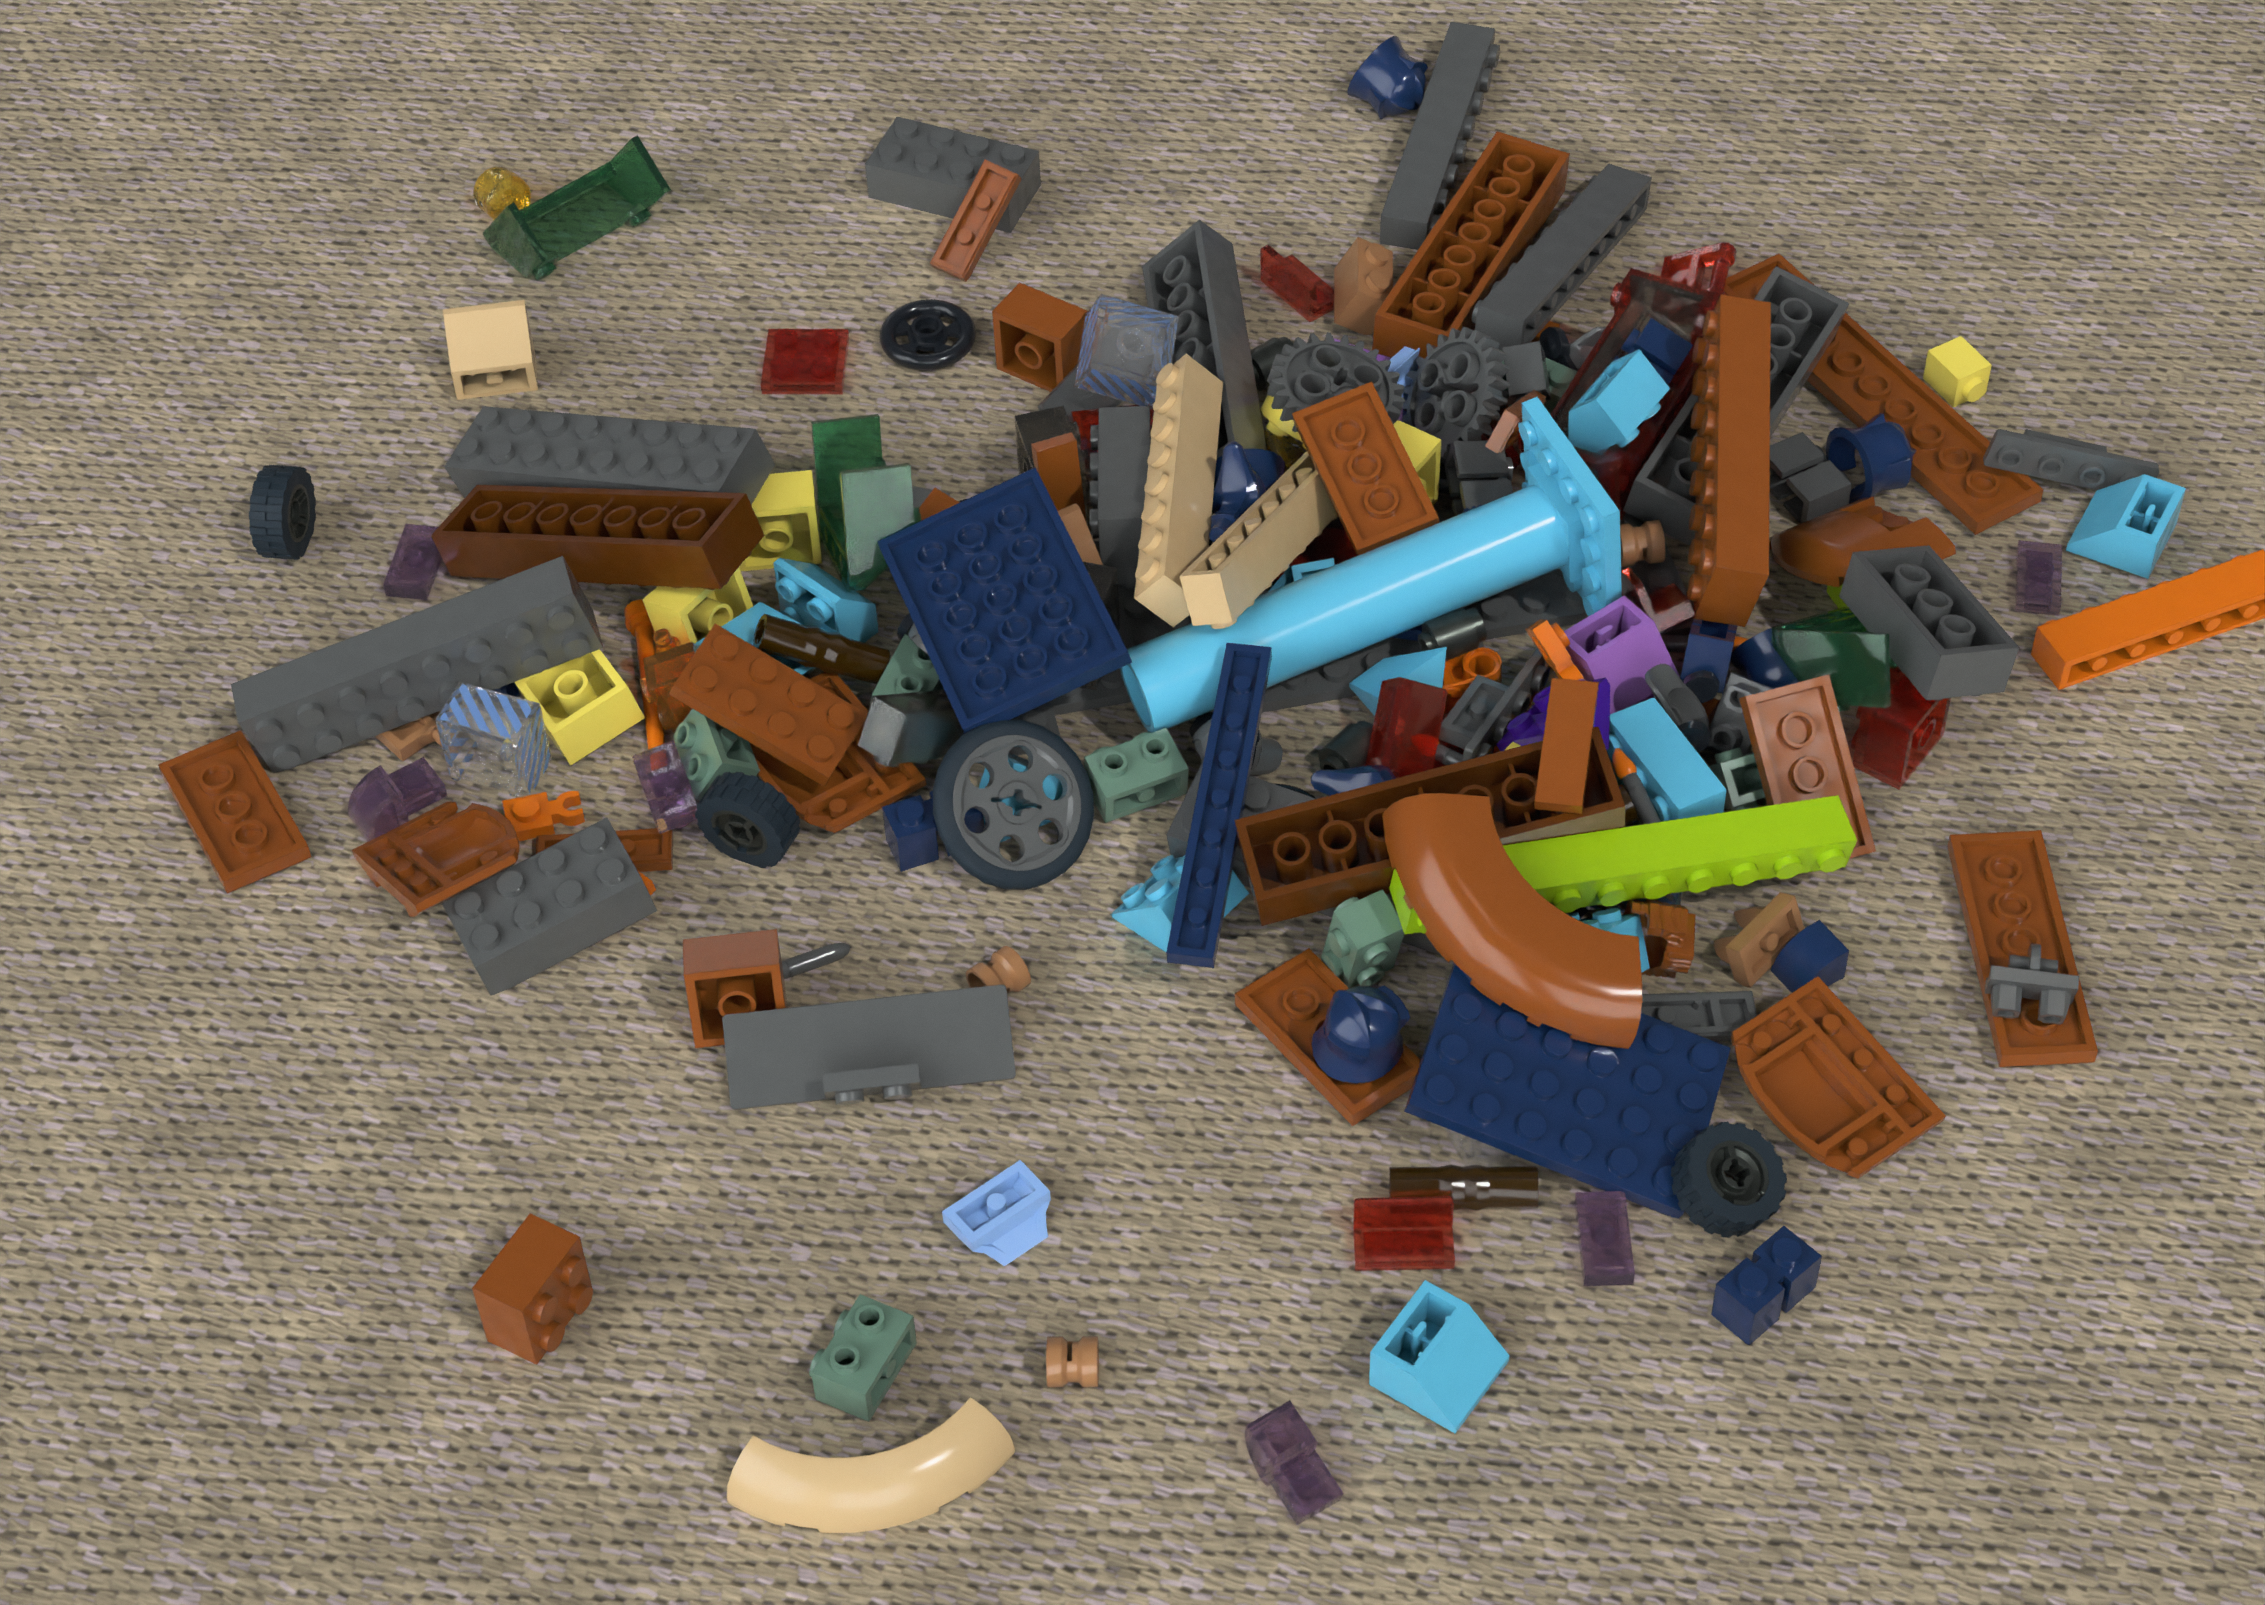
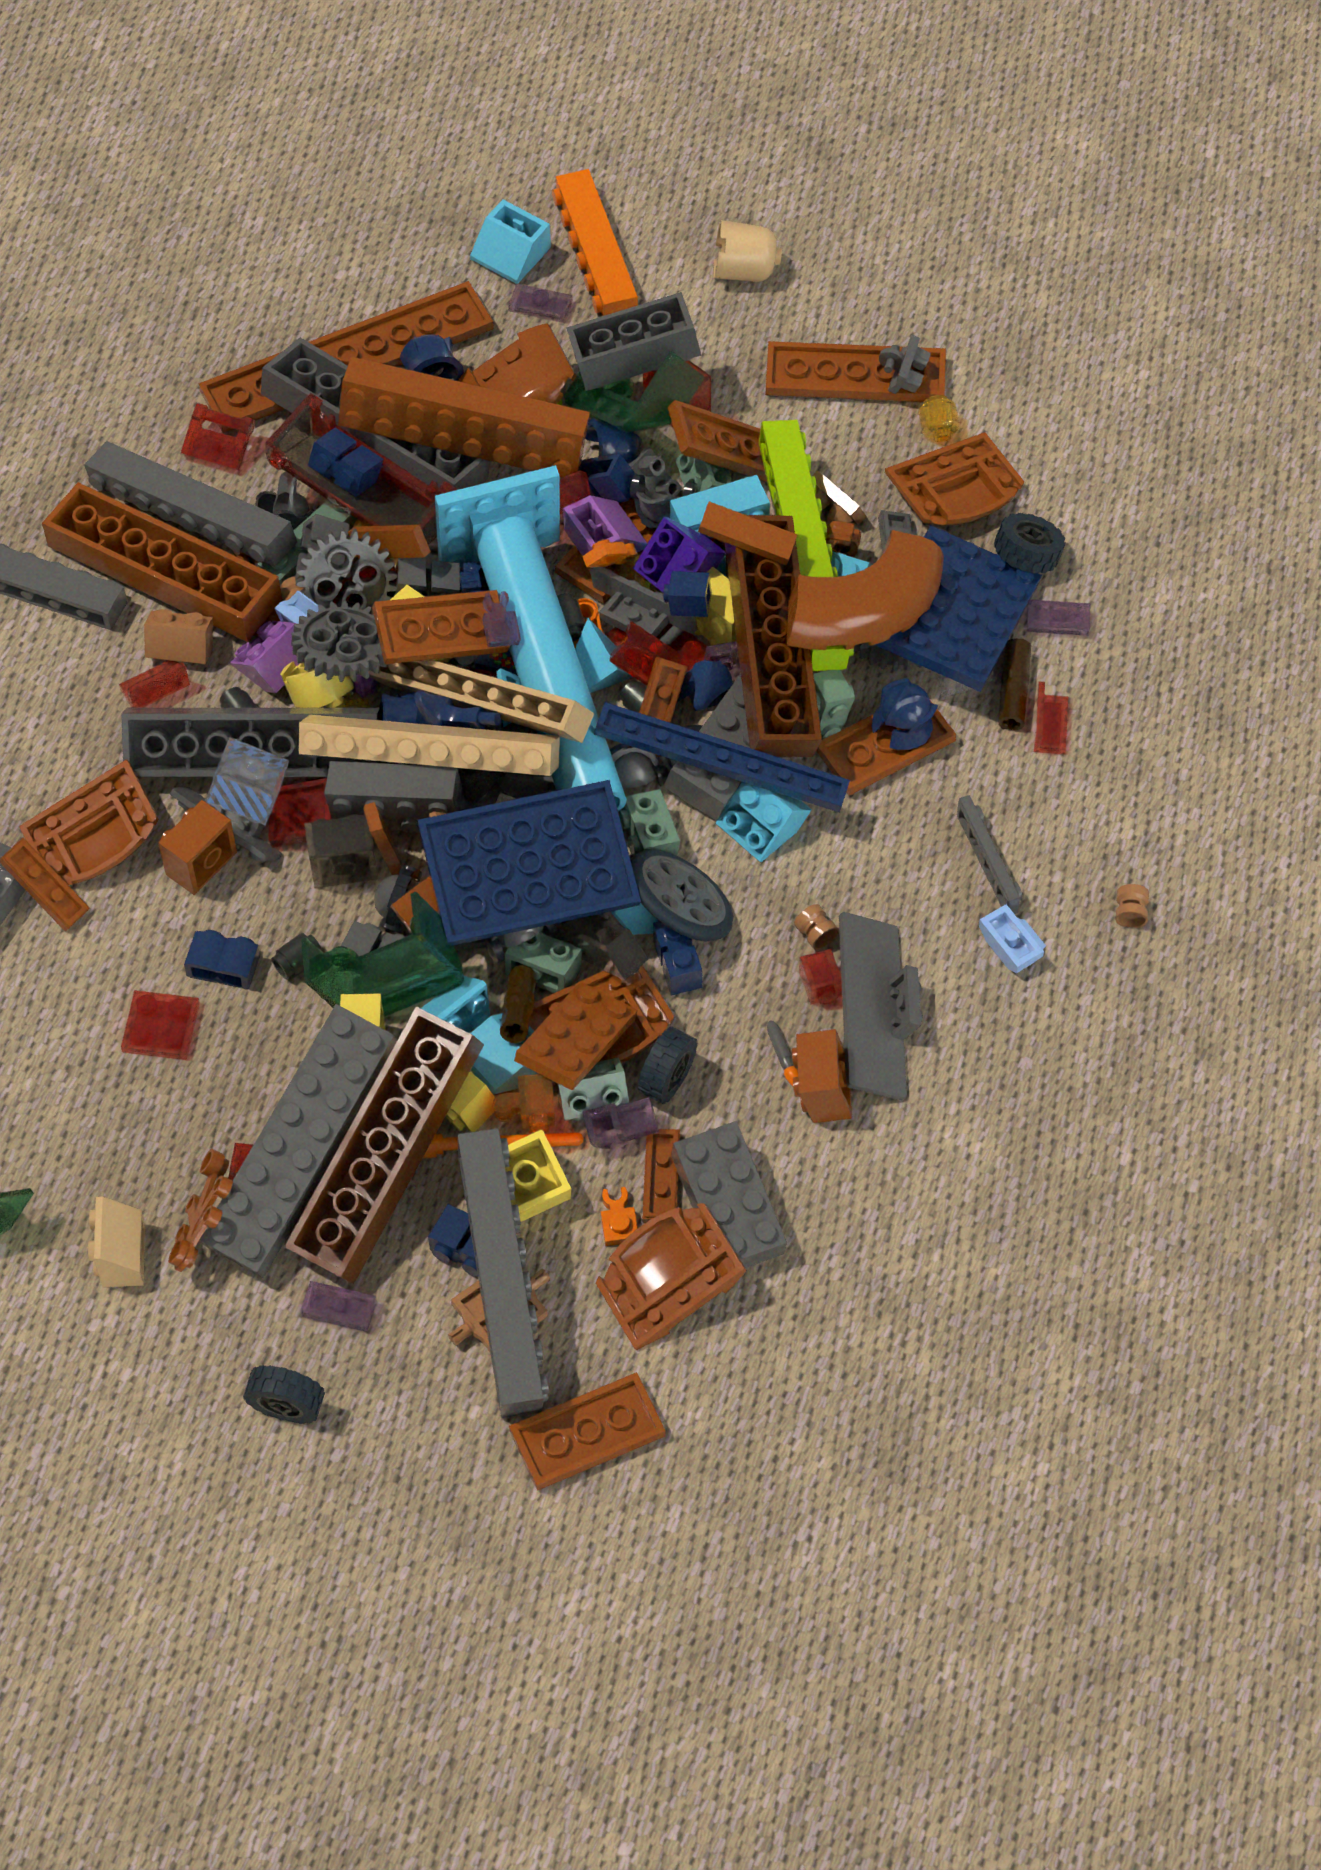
camera: 85 degrees left, 10 degrees up
(386, 800) = (596, 1313): clear purple brick -> none
(468, 398) = (200, 1210): none -> dark orange plant
(494, 739) = (561, 1234): clear container -> none
(533, 1289) = (1067, 1205): dark orange brick -> none
(863, 1357) = (1126, 1019): sand green brick -> none
(873, 1488) = (1219, 1068): tan brick -> none
(898, 393) = (222, 959): none -> dark blue brick
(903, 449) = (289, 957): none -> pearl dark grey brick
(912, 976) = (820, 977): none -> clear red brick
(927, 334) = (149, 913): black plate -> none
(1066, 252) = (93, 826): none -> dark orange slope
(1144, 1169) = (972, 822): none -> dark grey plate
(1287, 1460) = (1216, 794): clear purple brick -> none
(1353, 746) = (663, 690): none -> dark orange tile
(1375, 524) = (500, 625): none -> clear purple plate
(1437, 1357) = (1143, 713): medium azure slope -> none
(1486, 725) = (688, 594): none -> dark blue brick
(1616, 404) = (397, 479): medium azure slope -> none
(1752, 1292) = (1114, 546): dark blue piece -> none
(1811, 954) = (857, 477): dark blue brick -> none
(1954, 1053) = (939, 418): none -> clear yellow head
(1957, 371) = (343, 305): light yellow brick -> none
(2063, 459) = (446, 260): dark grey bracket -> none
(2197, 775) = (746, 252): none -> tan cylinder

